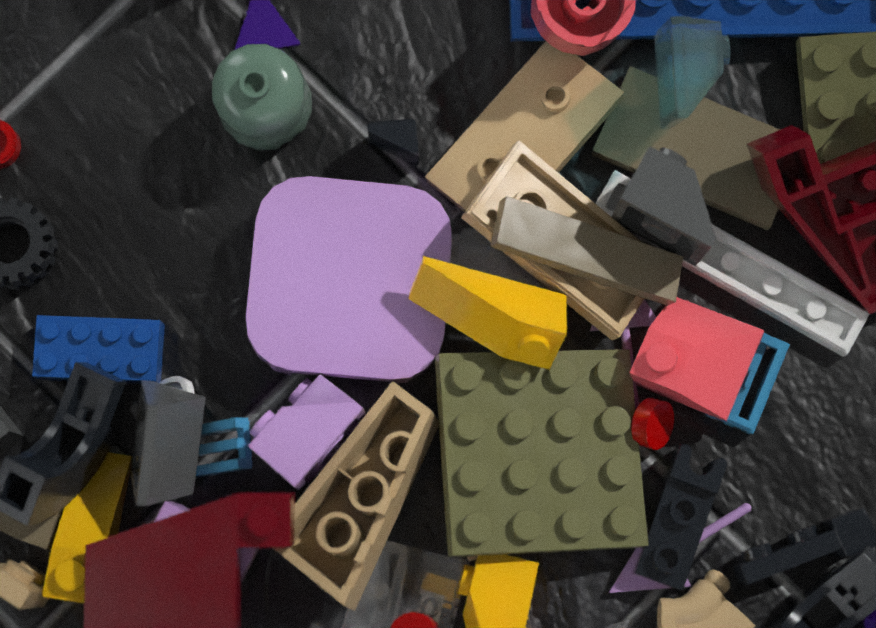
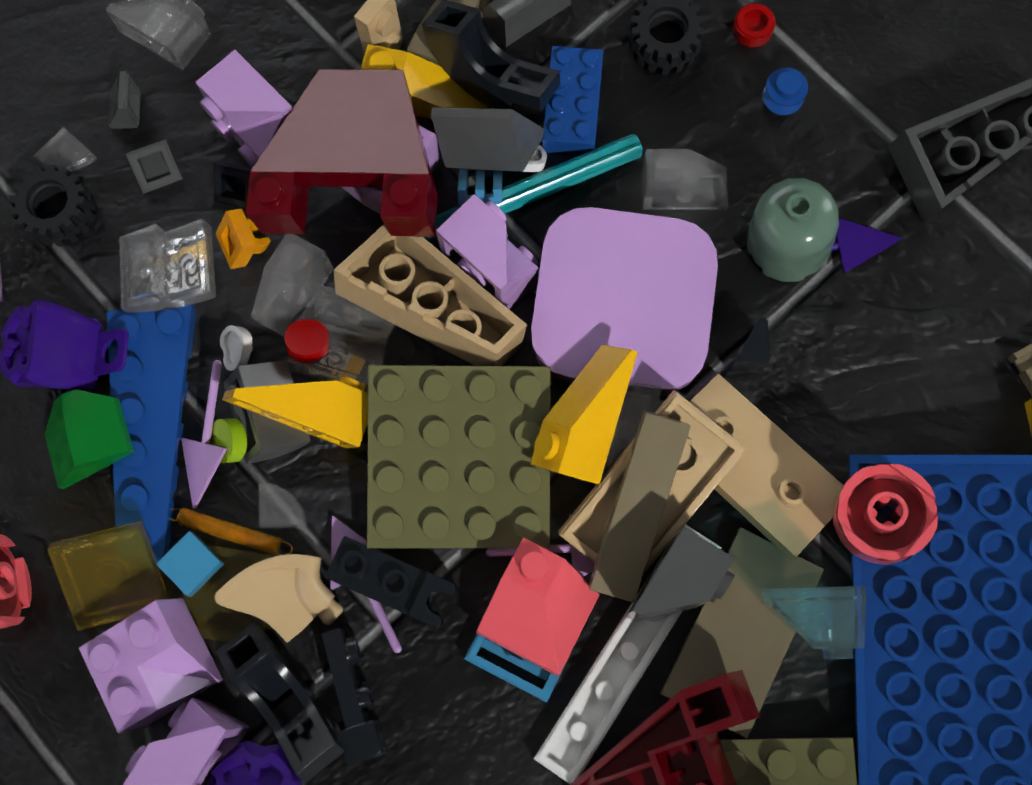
camera: 100 degrees right, 5 degrees down
(84, 107) = (785, 91): none -> blue wheel
(200, 220) = (682, 181): none -> clear slope
(200, 369) = (561, 176): none -> teal axle
(652, 423) = (478, 563): red tile -> none

